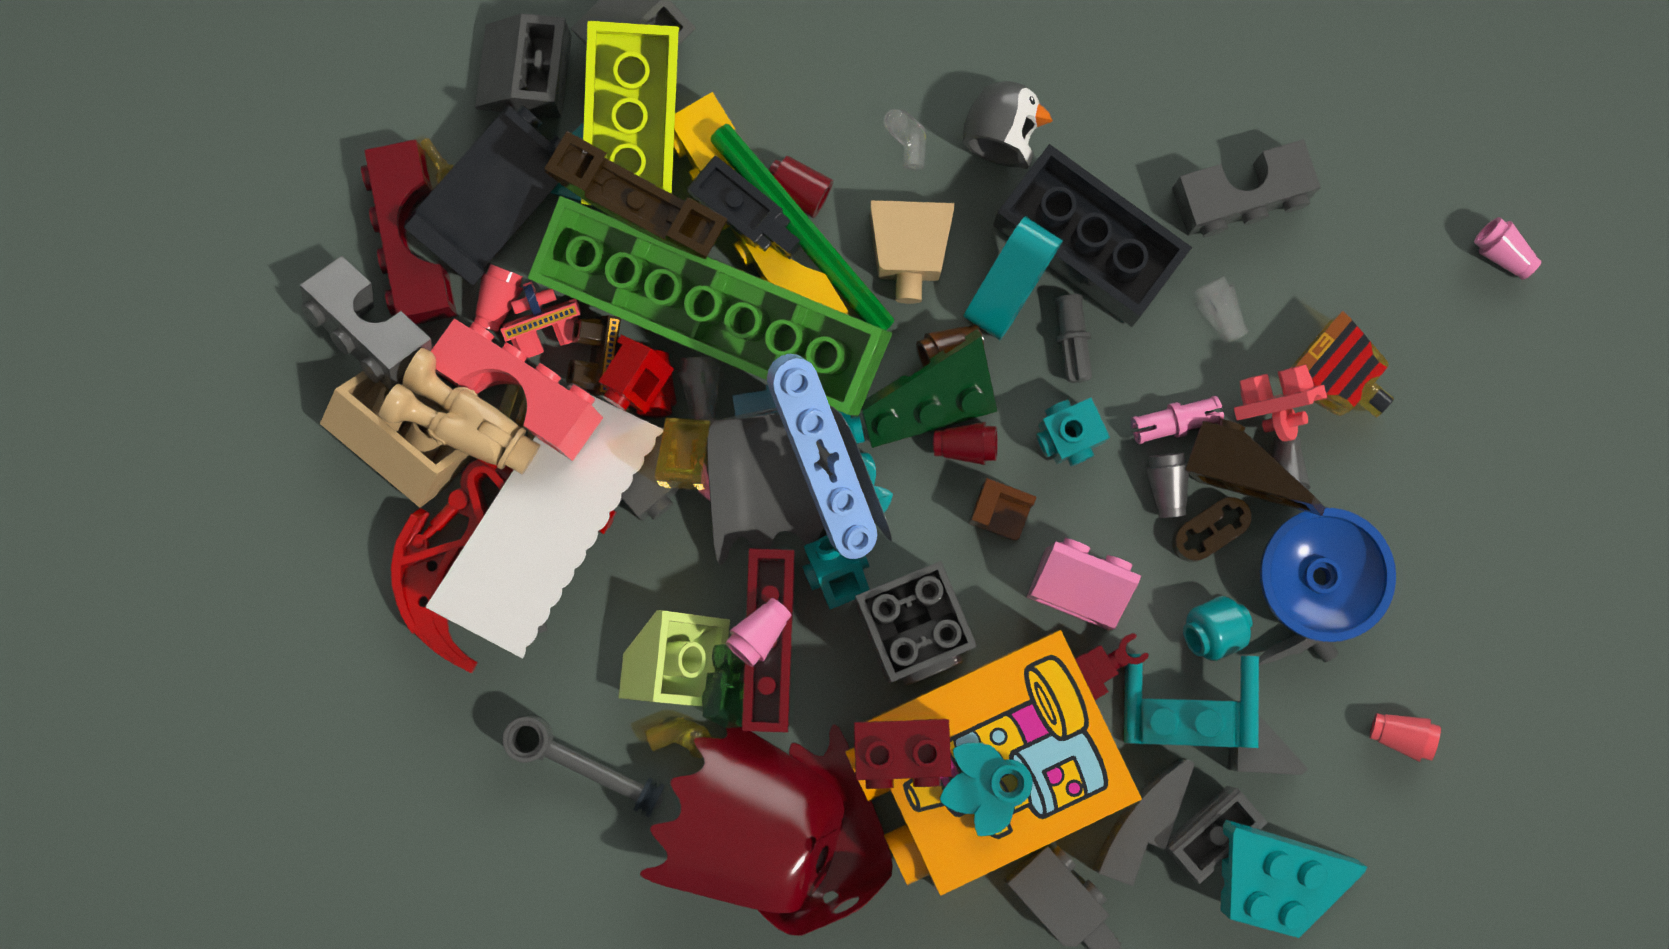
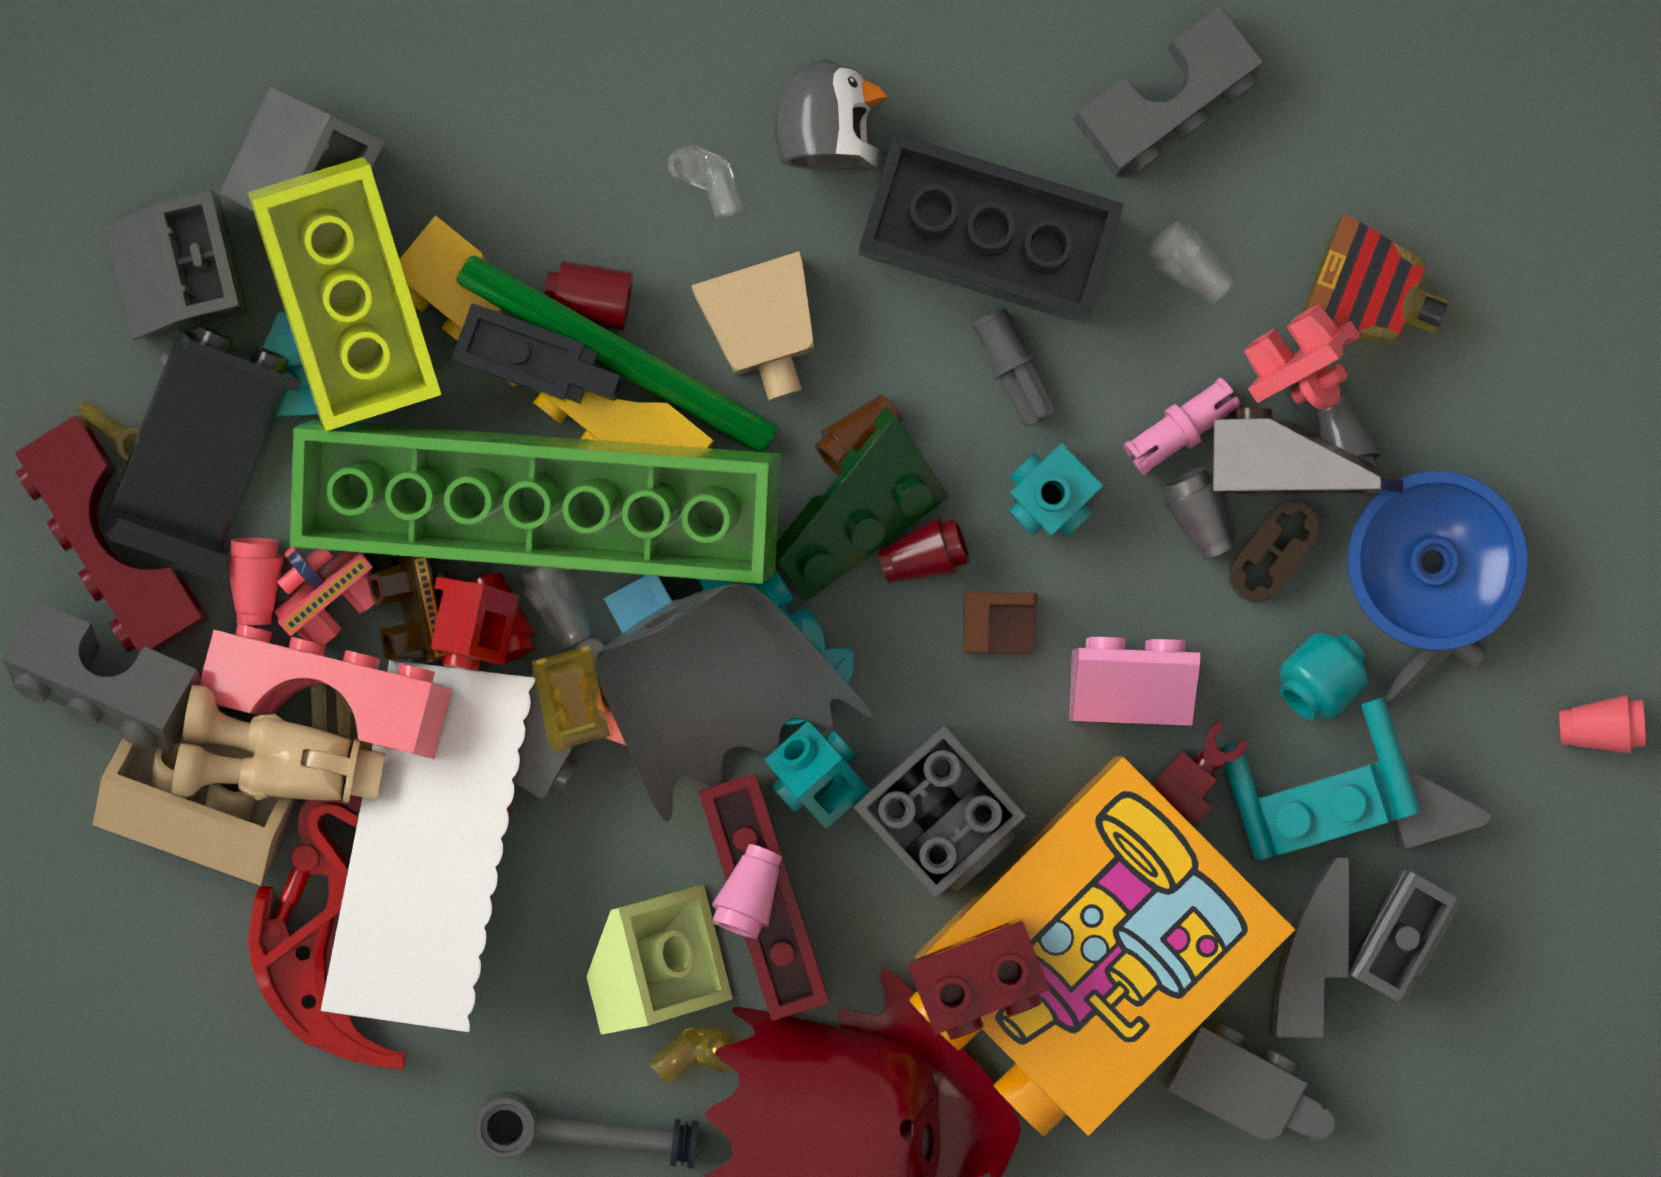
camera: 20 degrees left, 5 degrees up
(633, 199) = (395, 404): dark brown slope -> none
(723, 690) = (730, 978): clear green plate -> none
(808, 419) = (715, 615): light blue piece -> none
(979, 790) = (1089, 989): teal plate -> none
(1012, 278) = (908, 324): teal beam -> none
(1281, 880) = (1506, 964): teal wing -> none
(1506, 247) = (1531, 50): bright pink cone -> none

